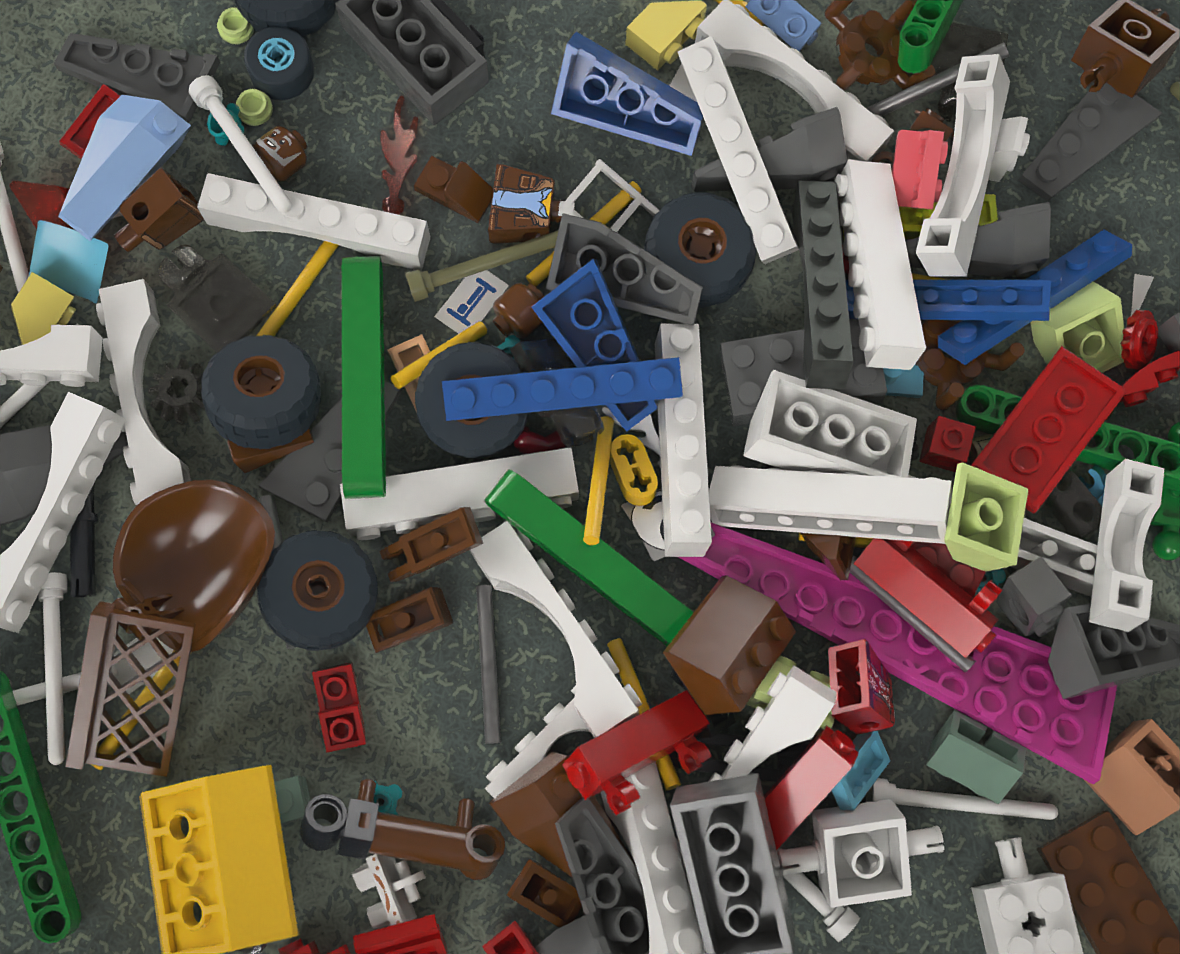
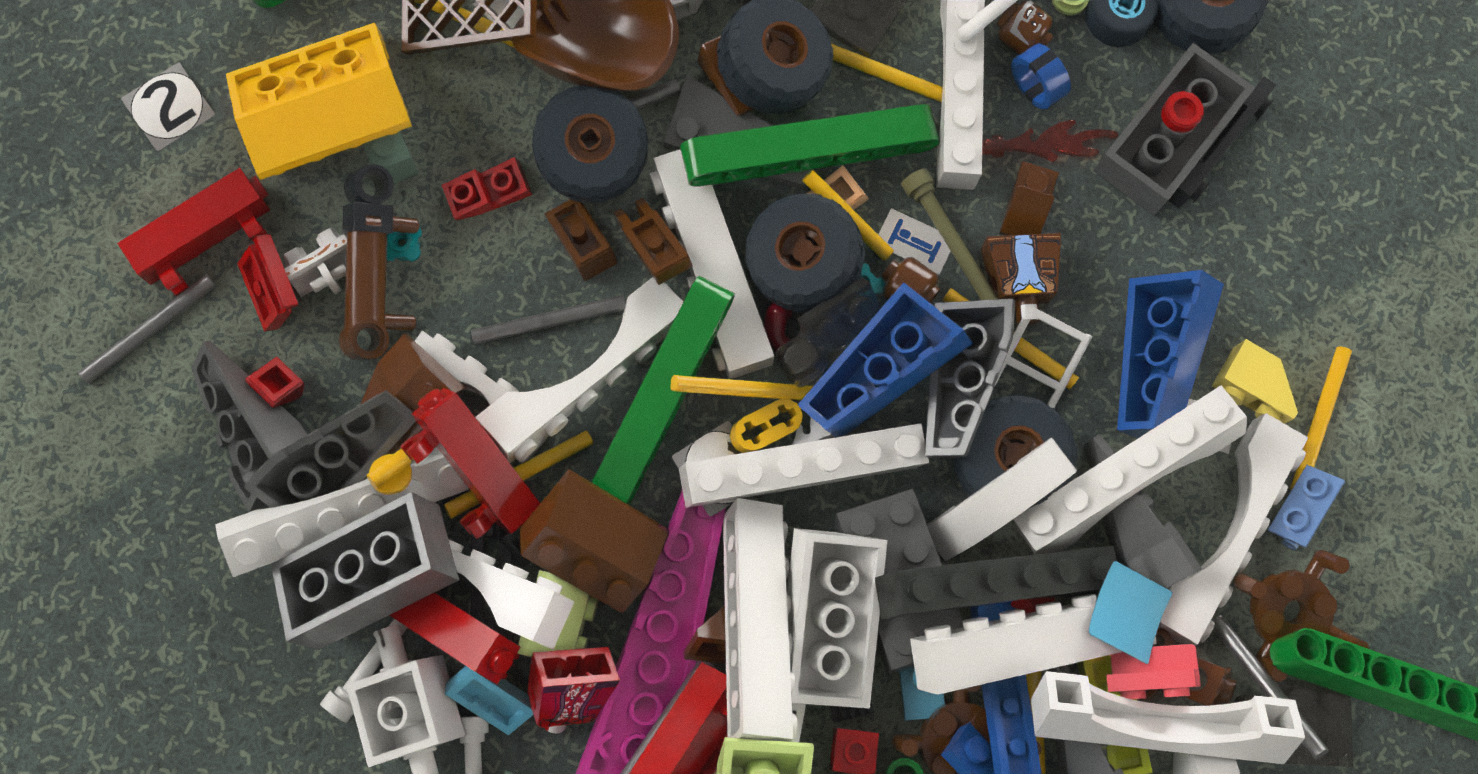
camera: 80 degrees right, 0 degrees up
(334, 148) = (1041, 76): none -> blue piece
(404, 27) = (1182, 112): none -> red tile
(546, 894) = (331, 397): reddish brown slope -> none
(562, 389) = (826, 332): blue plate -> none
(638, 830) = (391, 473): none -> yellow plate
(746, 264) = (1000, 500): none -> white slope
(863, 178) = (1129, 611): none -> medium azure sticker

